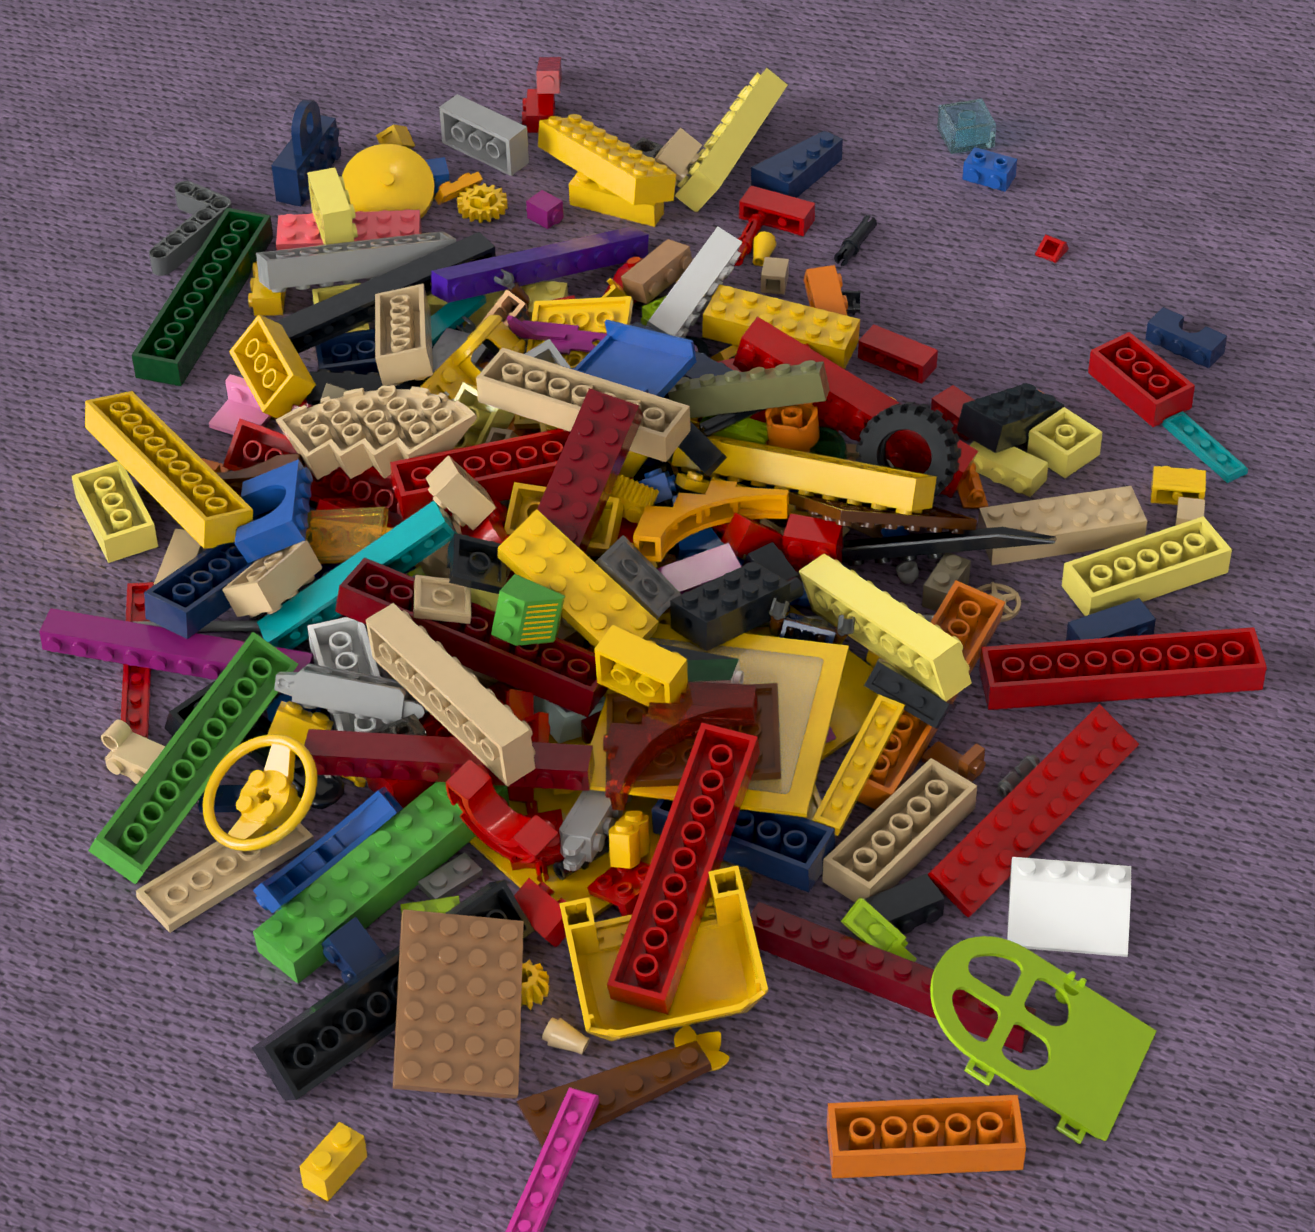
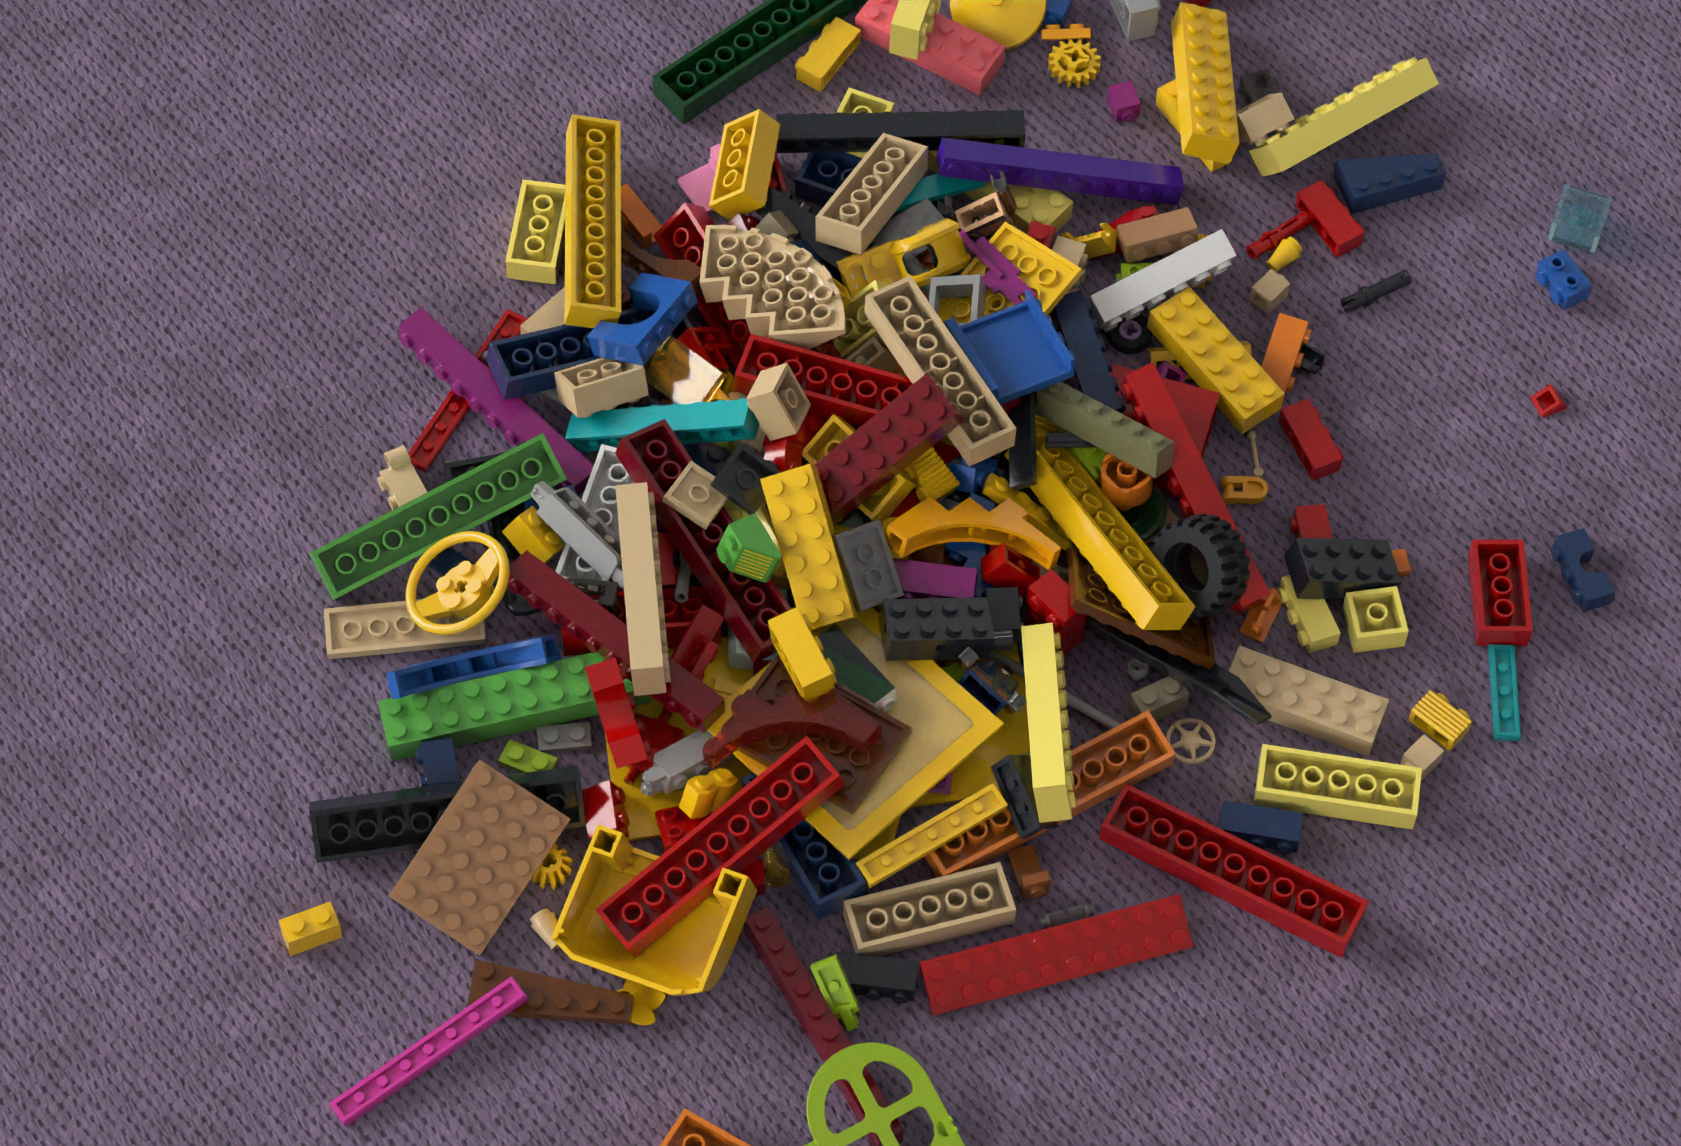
camera: 30 degrees right, 15 degrees up
(344, 260) = (901, 75): light grey brick -> none
(1069, 906) = (1011, 1057): white slope -> none

